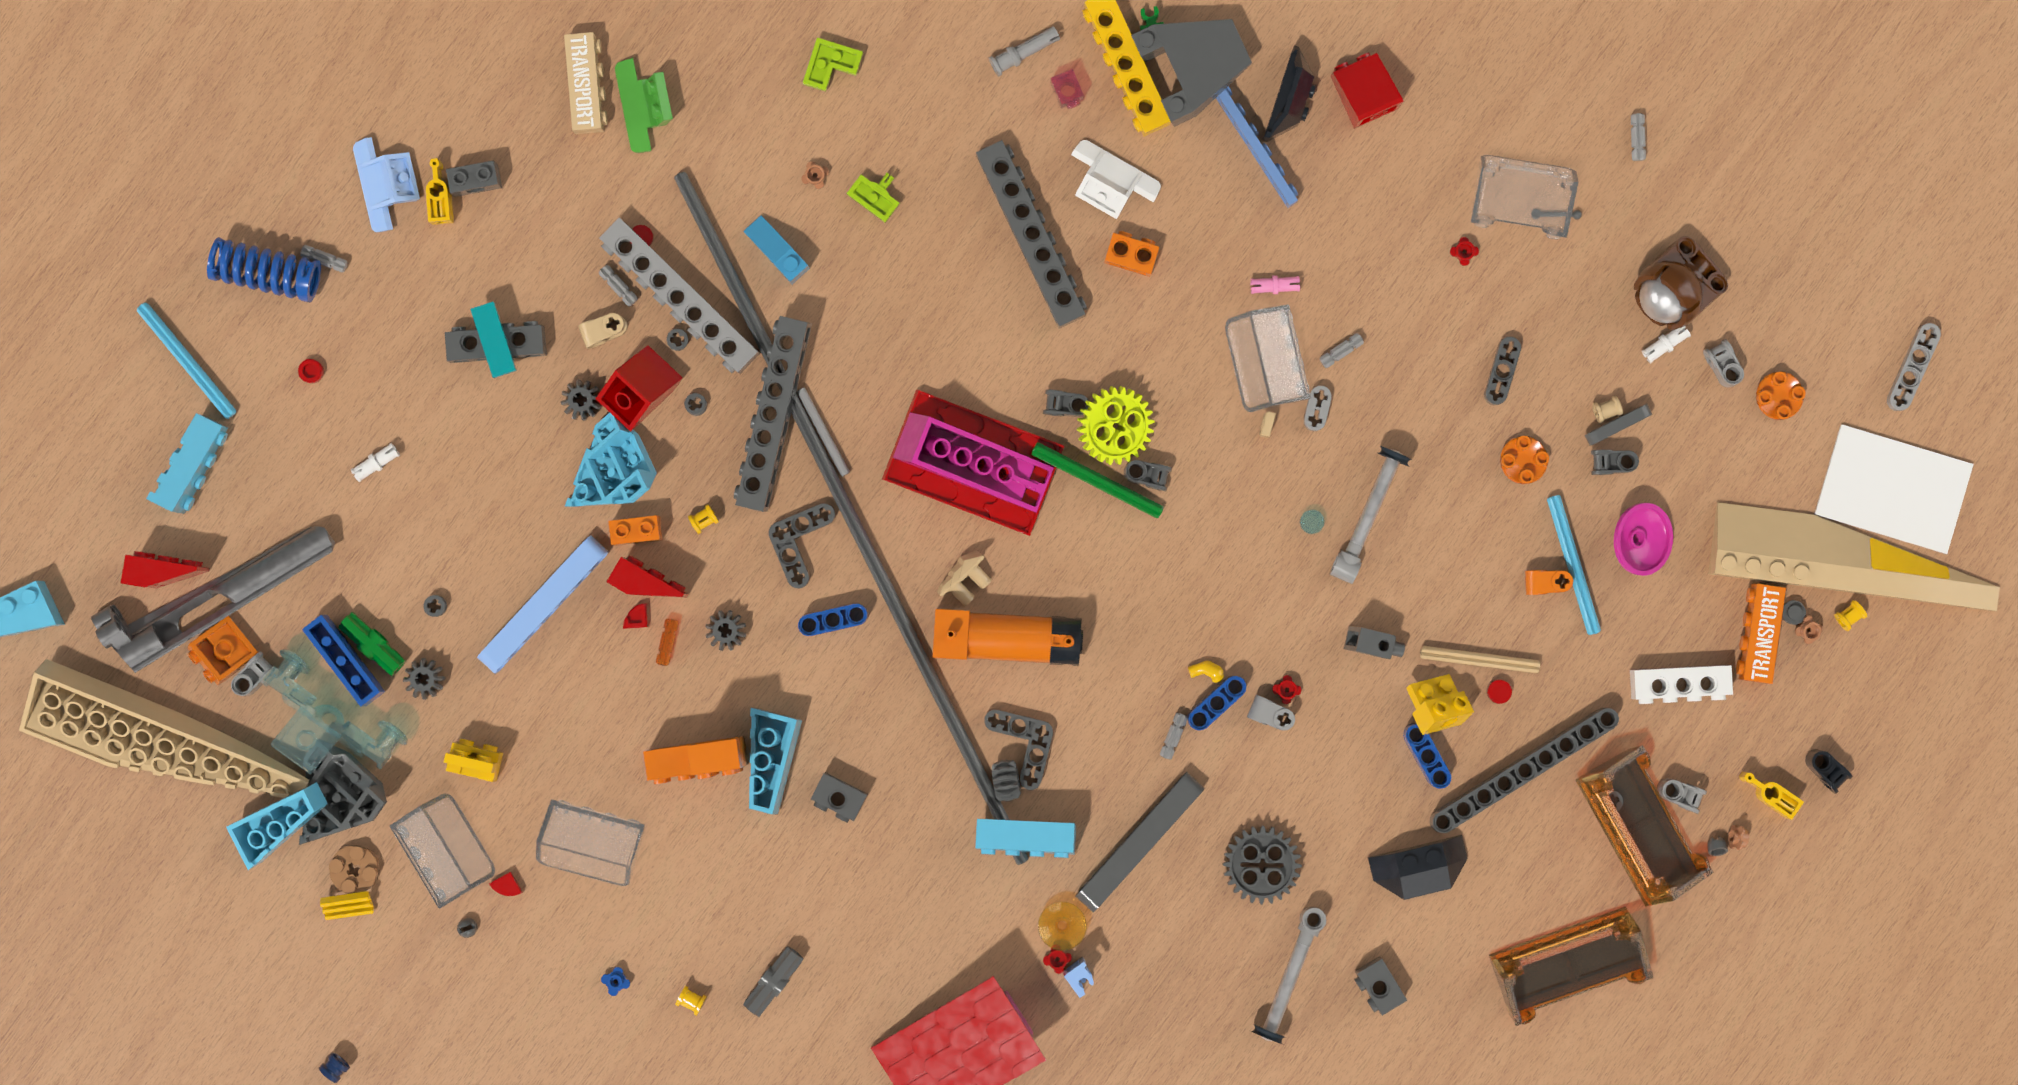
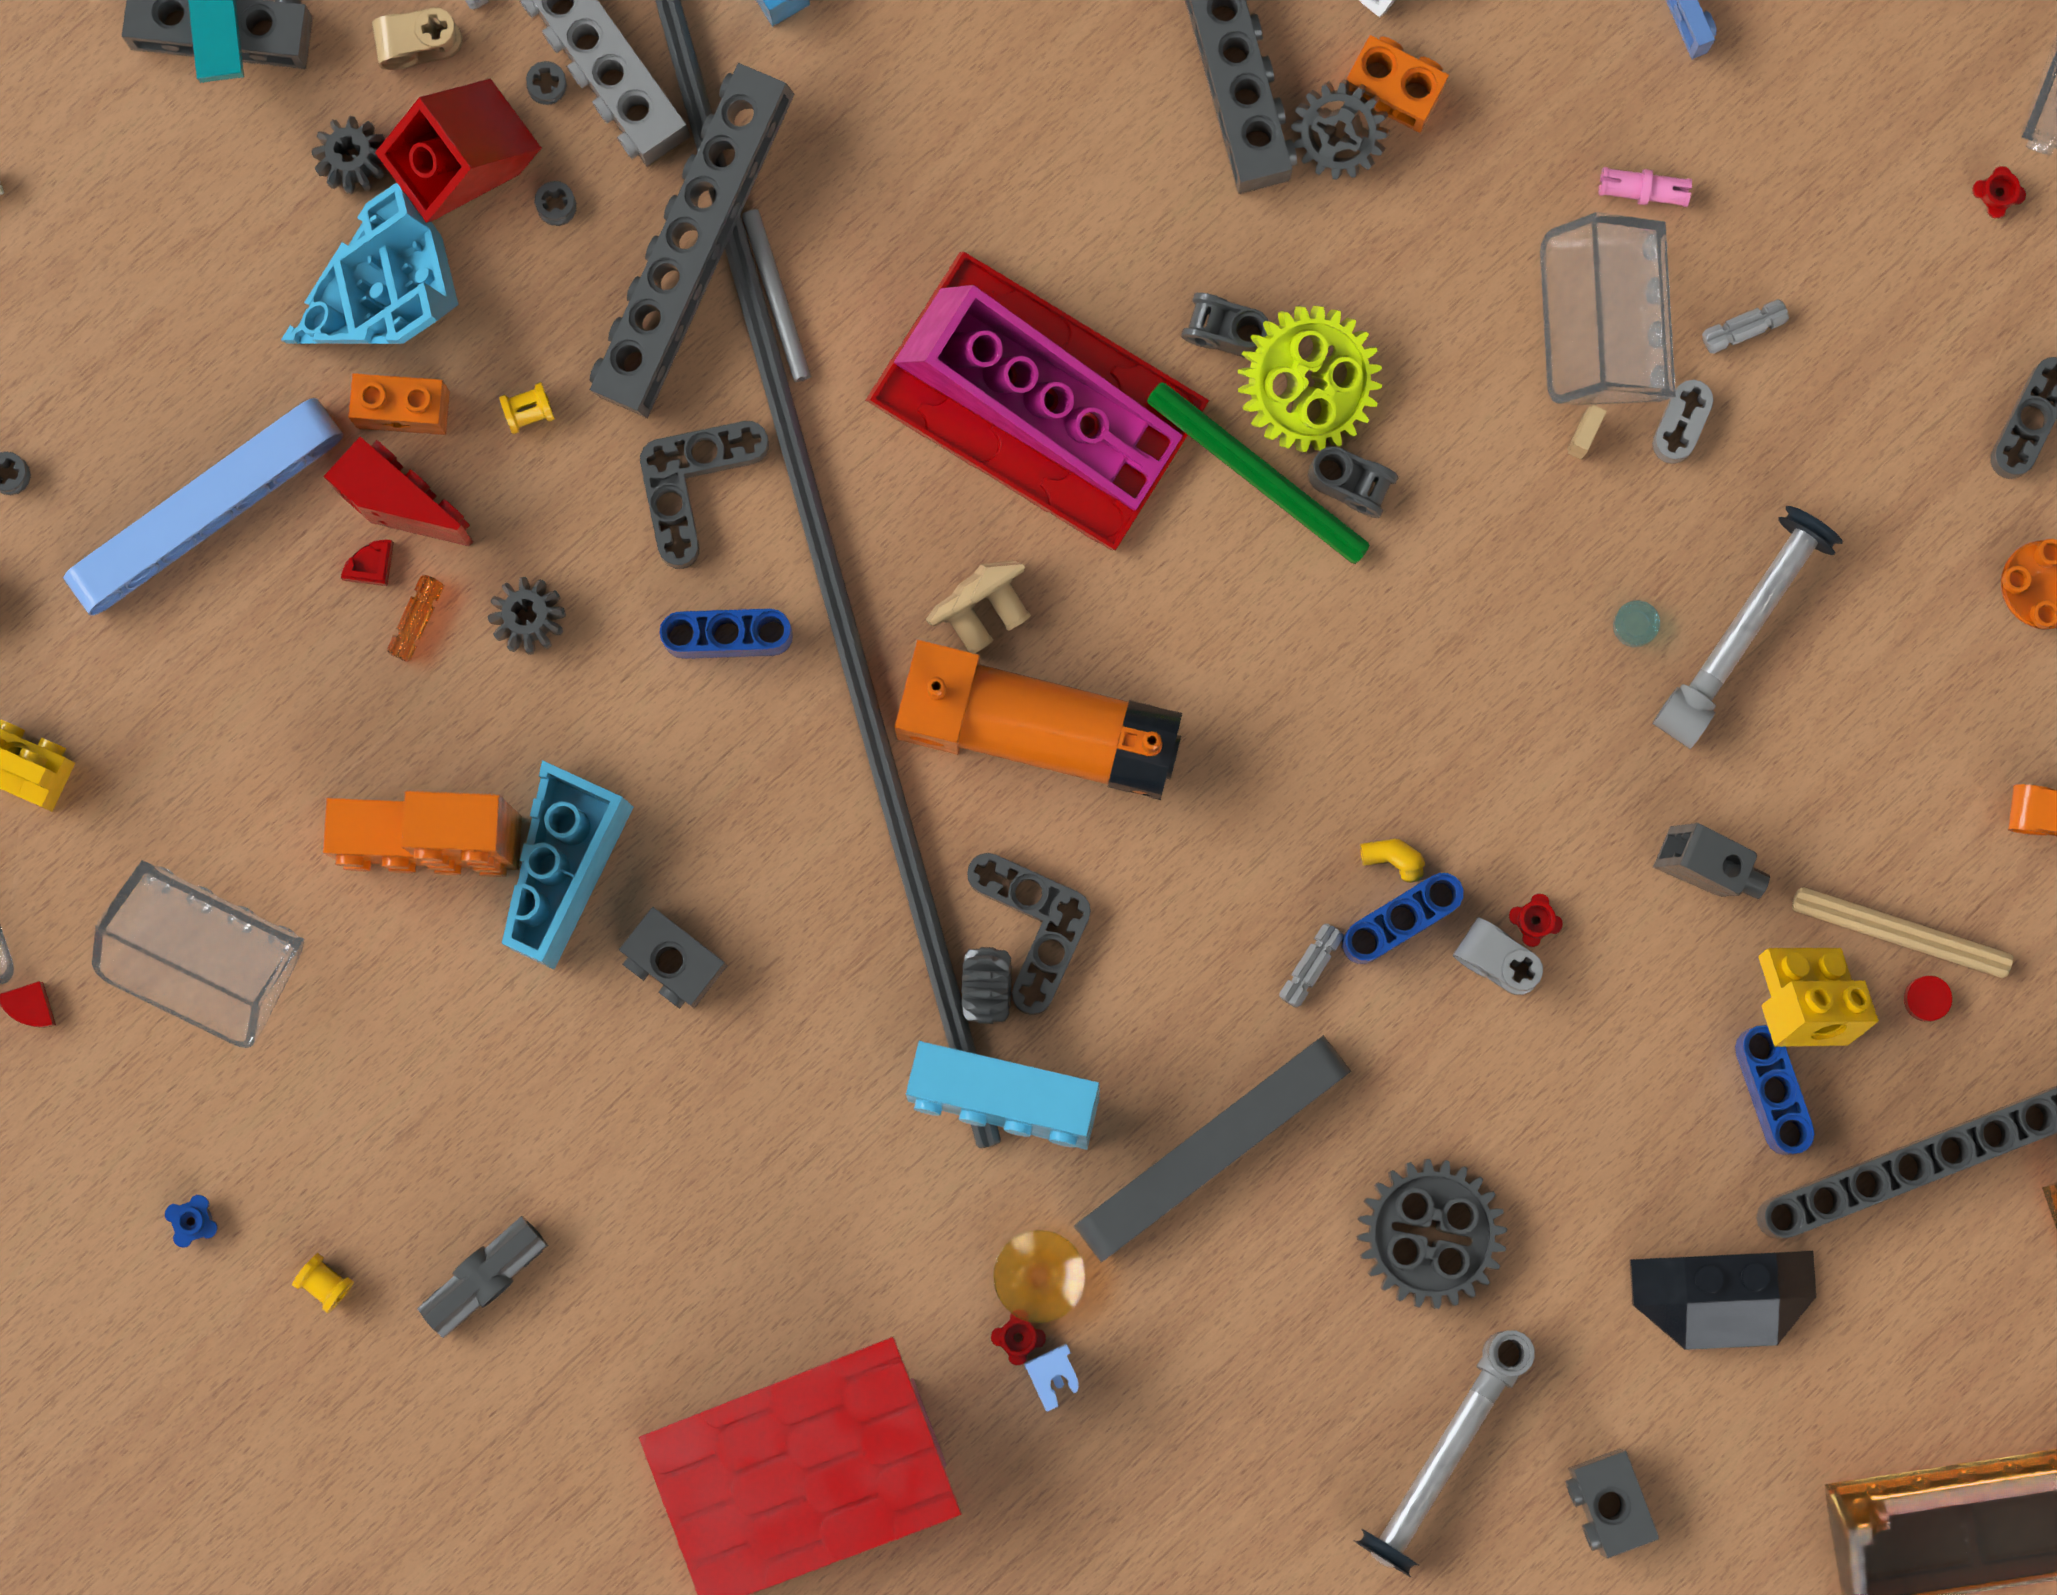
camera: 10 degrees right, 5 degrees down
(1096, 283) = (1356, 135): none -> dark grey gear

